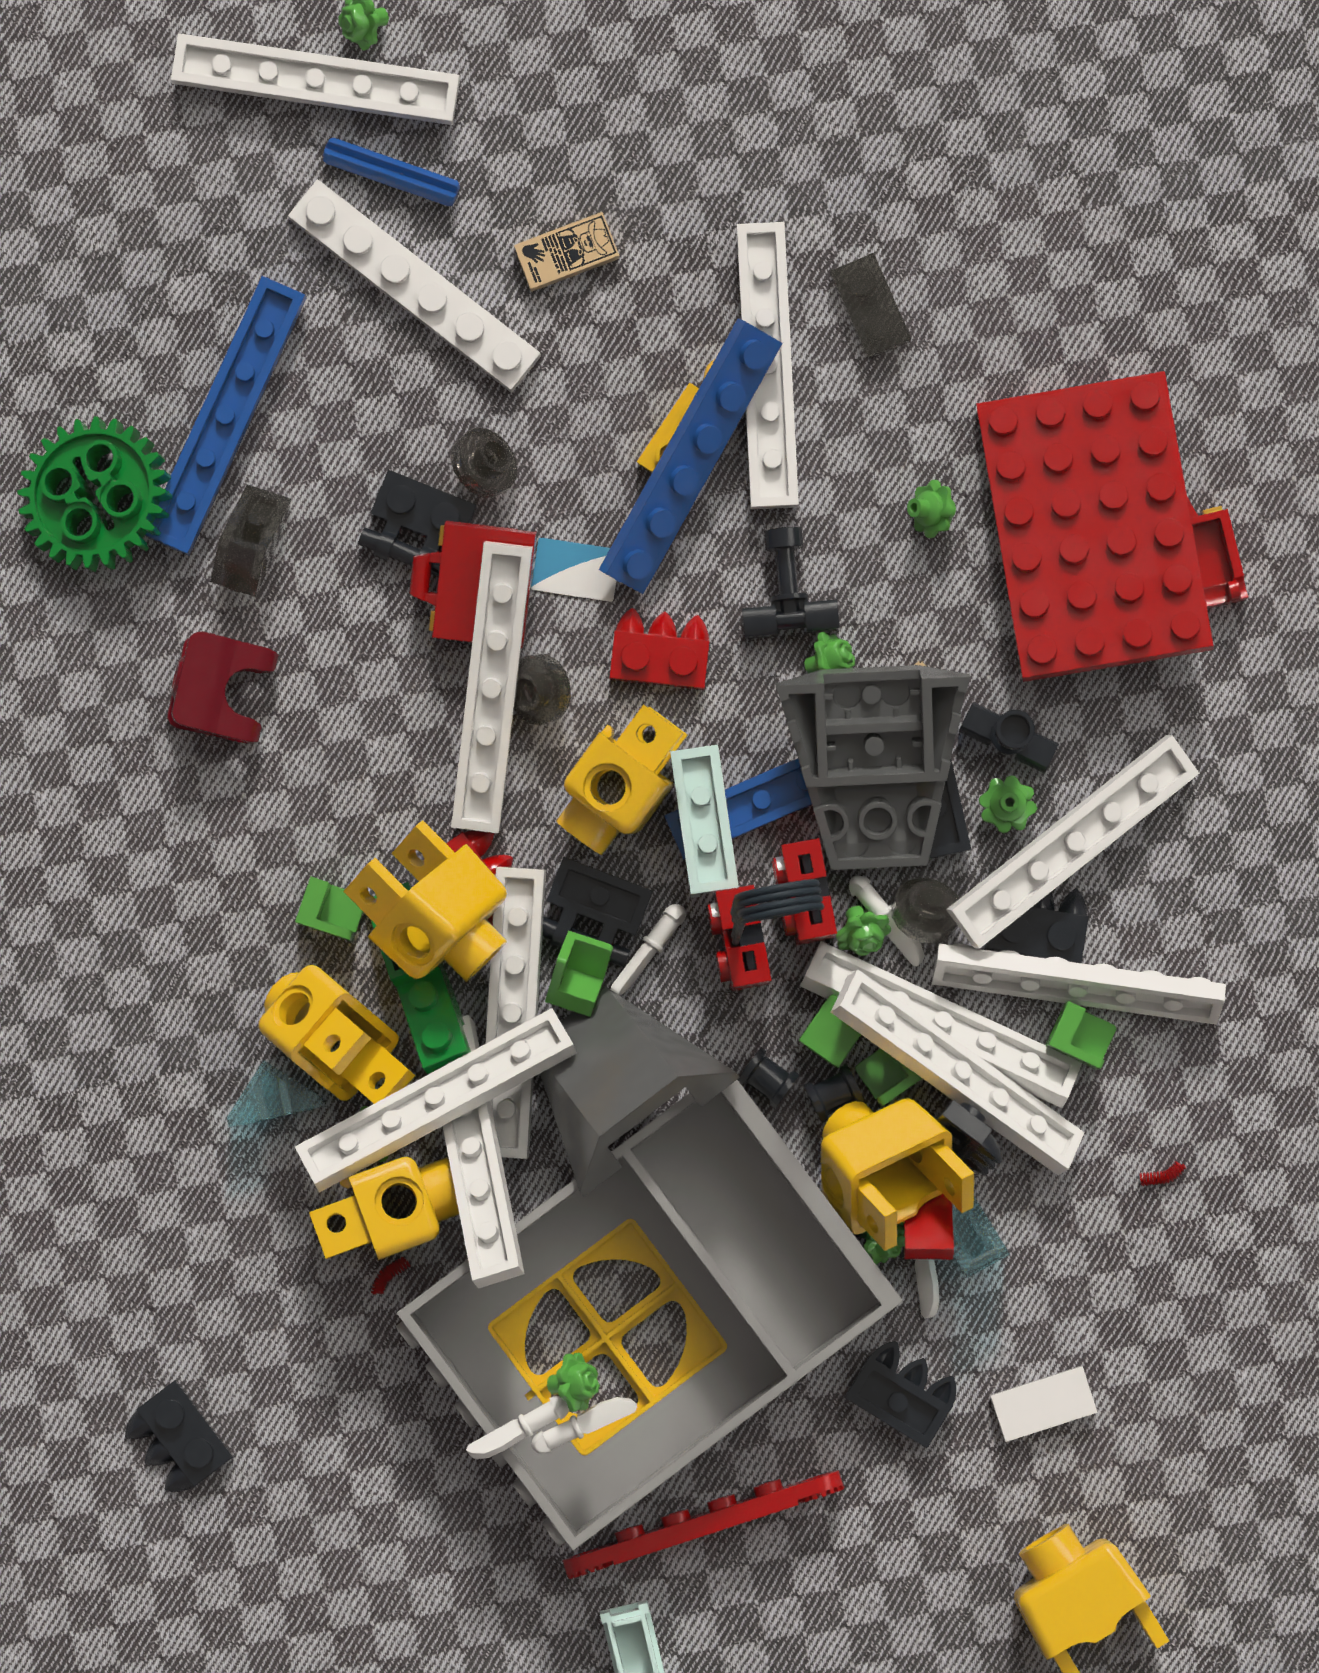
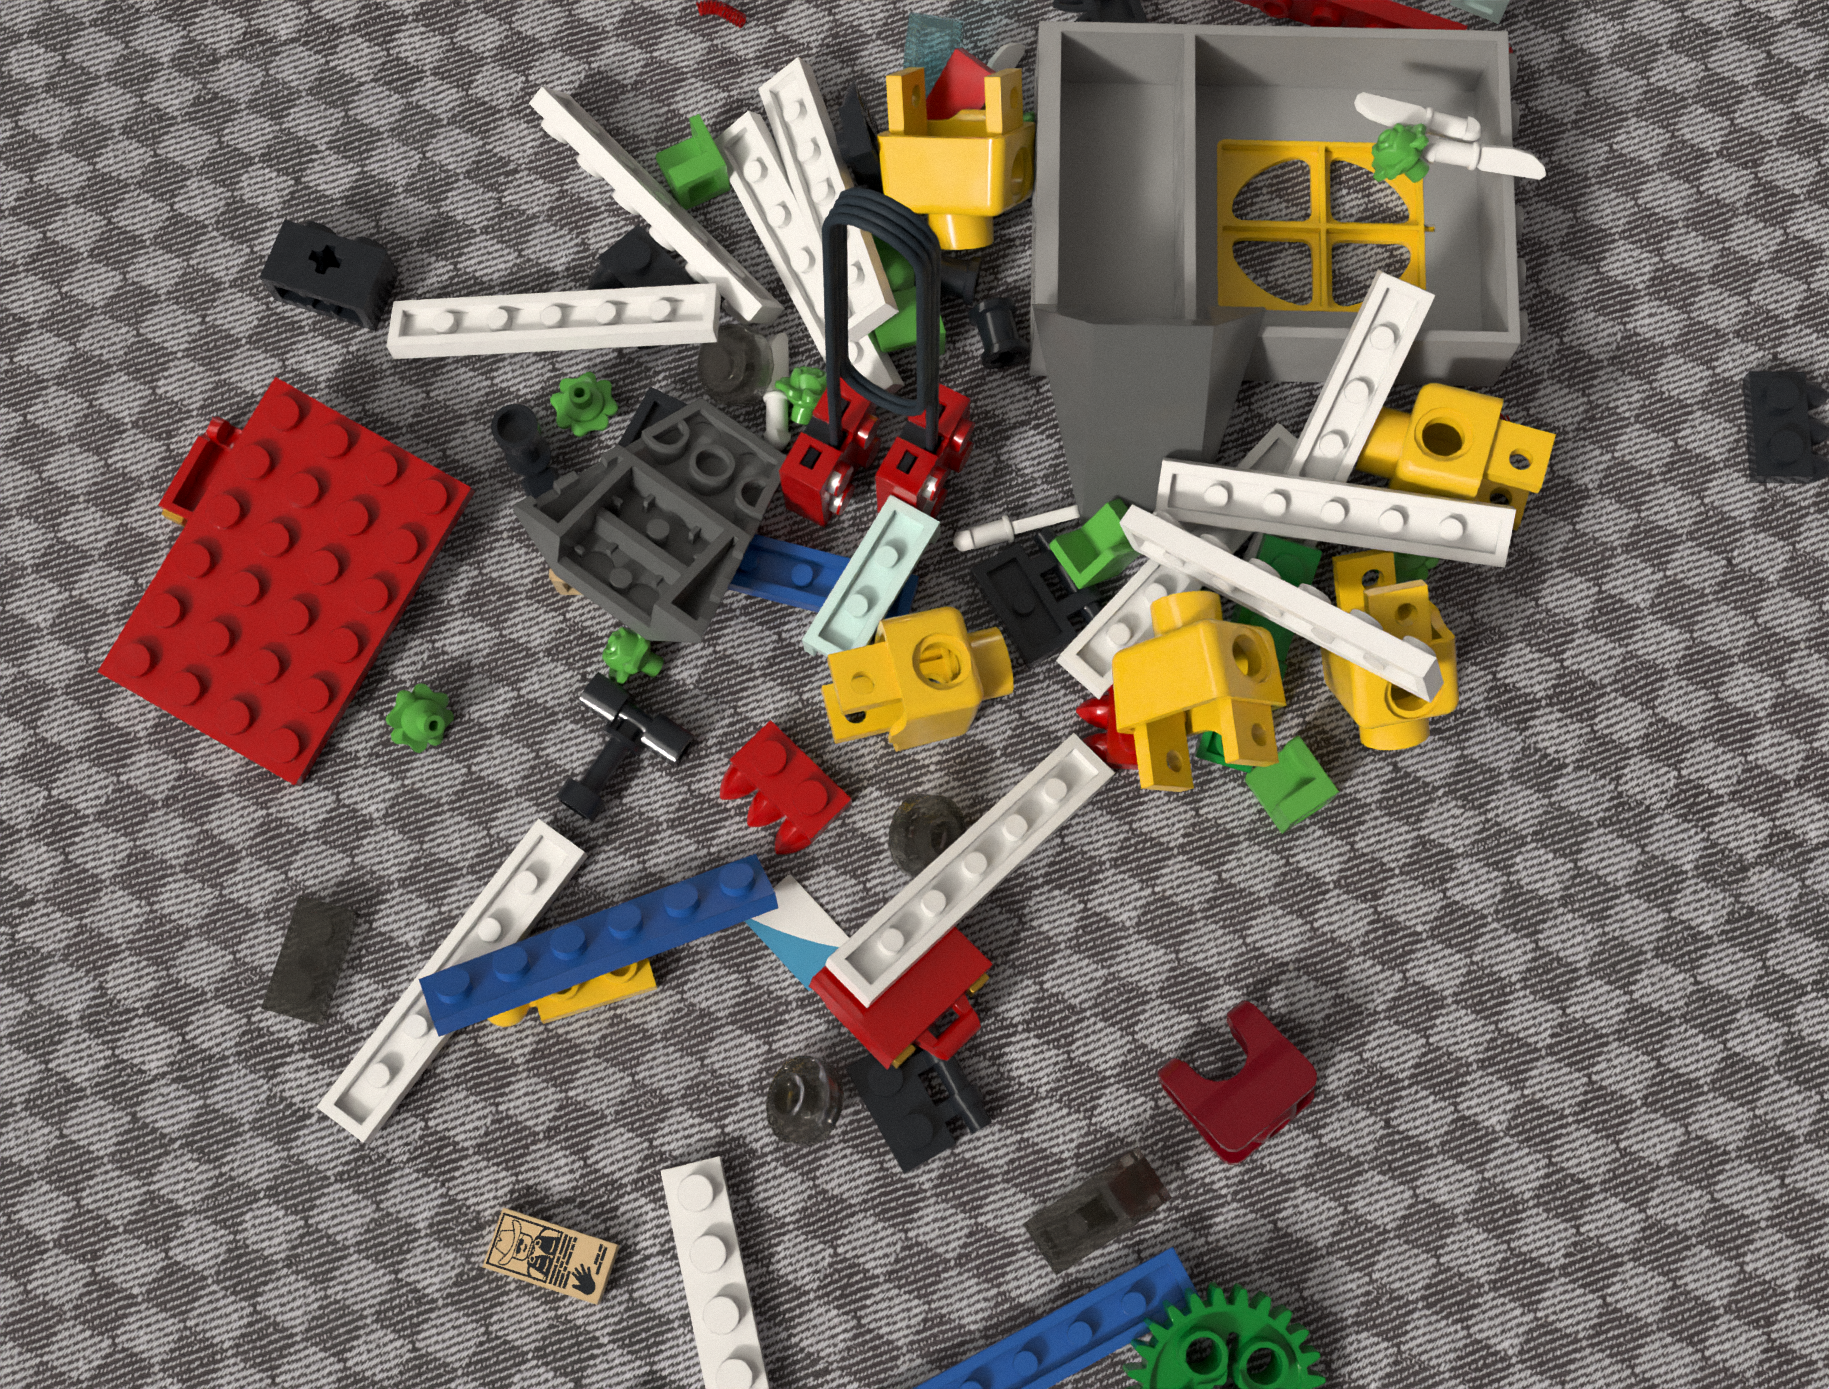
camera: 140 degrees left, 10 degrees down
(272, 1096) = (1487, 653): clear light blue slope -> none
(400, 997) = (1301, 609): none -> white plate
(1279, 738) = (330, 273): none -> black brick

